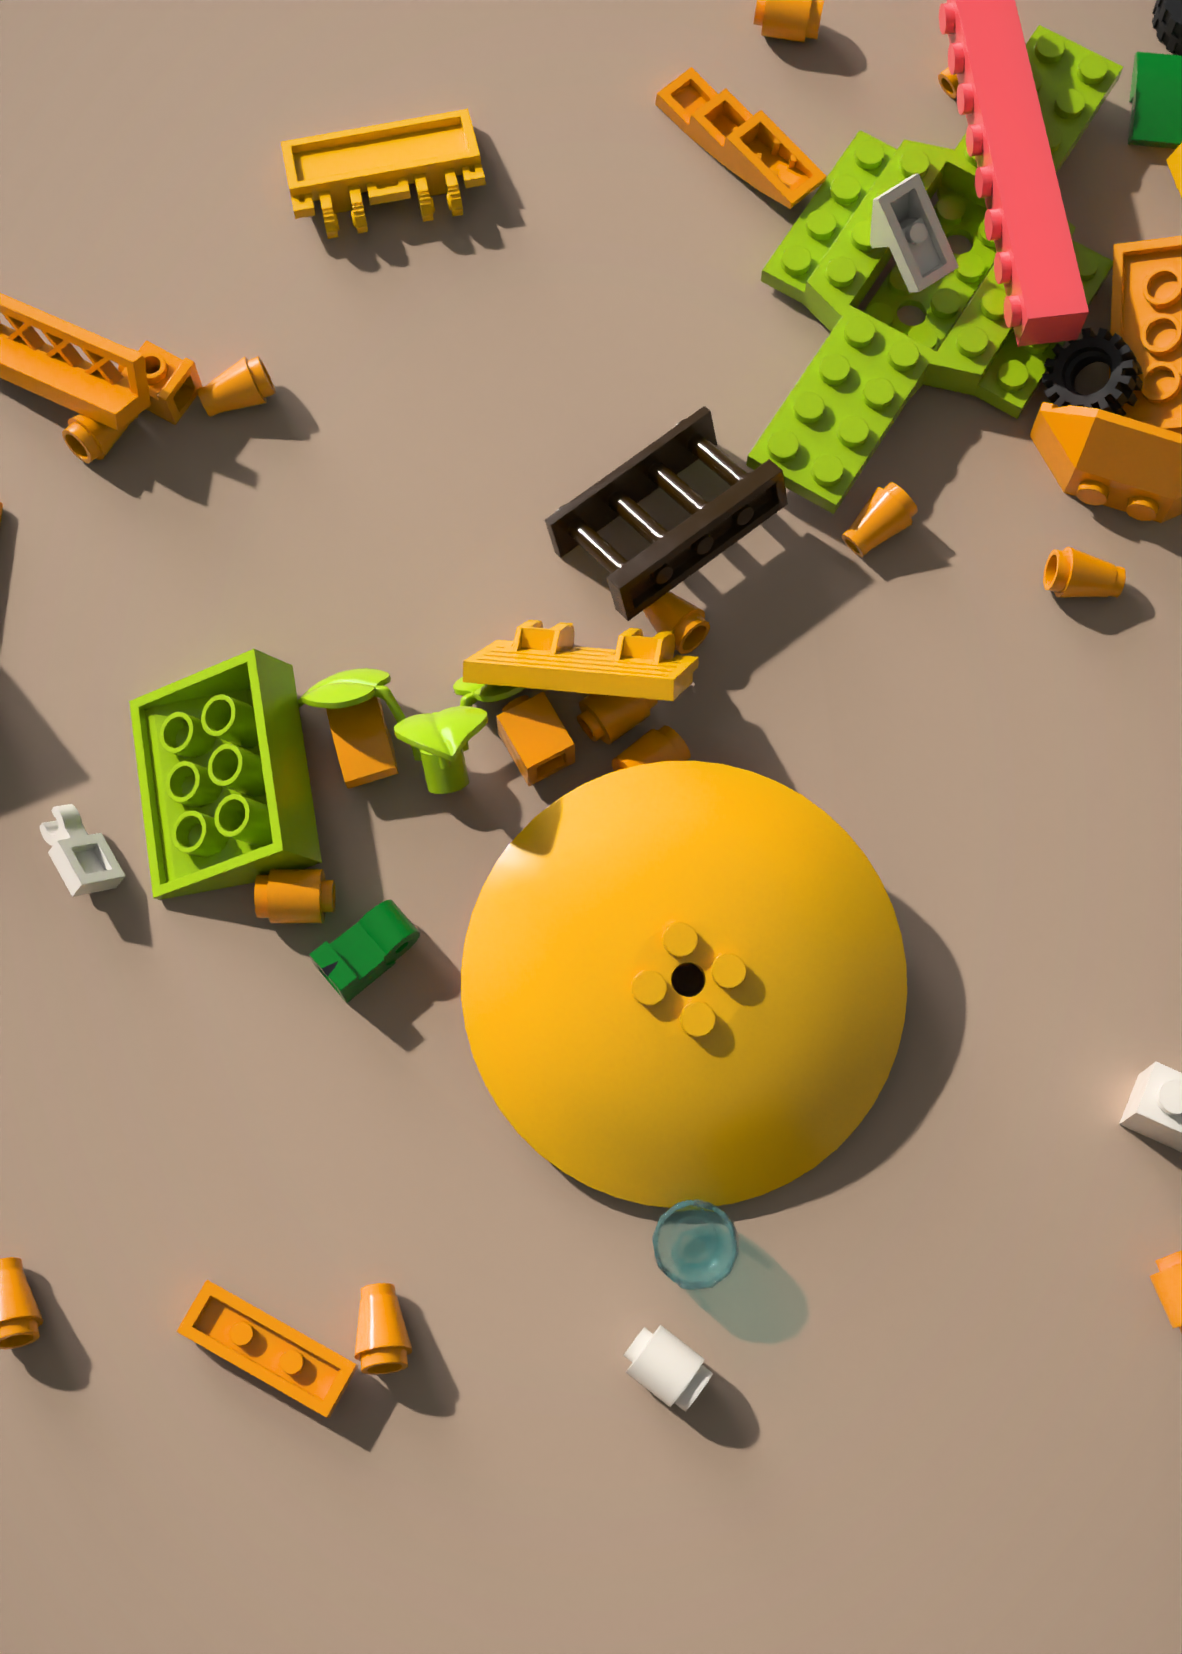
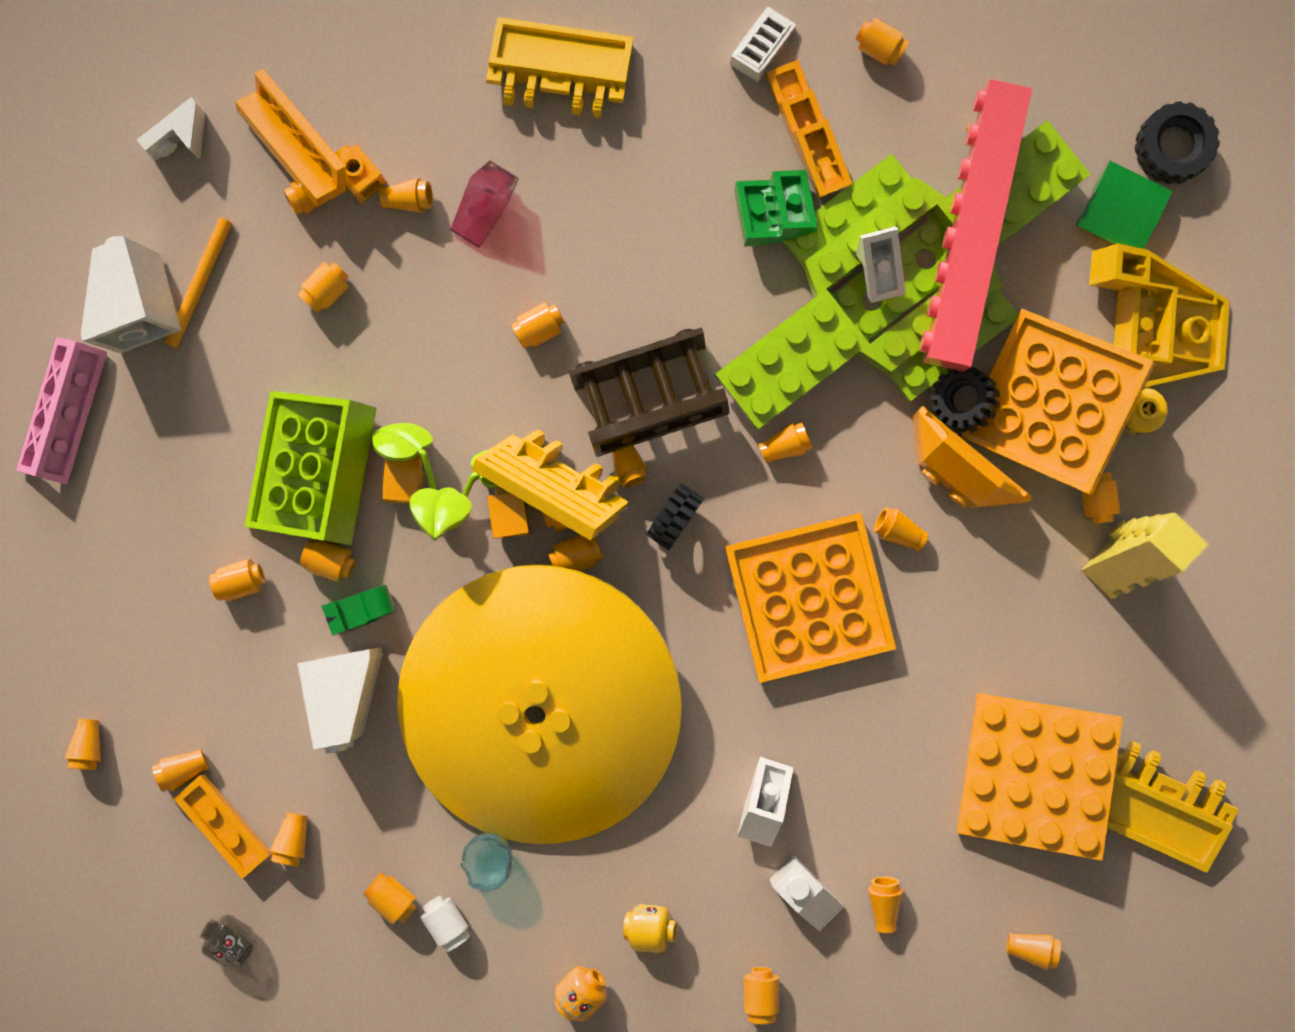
camera: 25 degrees right, 15 degrees up
(80, 858) = (207, 489): white plate -> none
(161, 536) = (324, 286): none -> light orange brick
(169, 972) = (237, 580): none -> light orange brick
(170, 1286) = (179, 769): none -> light orange cone
(336, 1527) = (227, 941): none -> clear smoke head
(345, 361) = (483, 203): none -> clear pink slope
(382, 1068) = (339, 697): none -> white slope
(479, 486) = (538, 325): none -> light orange brick
(568, 1361) = (390, 898): none -> light orange brick
(631, 94) = (747, 65): none -> white slope
(740, 241) = (775, 208): none -> green slope
(770, 656) = (674, 516): none -> black tyre
(918, 1396) = (580, 994): none -> light orange head
(980, 1255) = (649, 928): none -> yellow head
(1001, 707) = (810, 597): none -> light orange plate
(1068, 1008) = (765, 802): none -> white slope

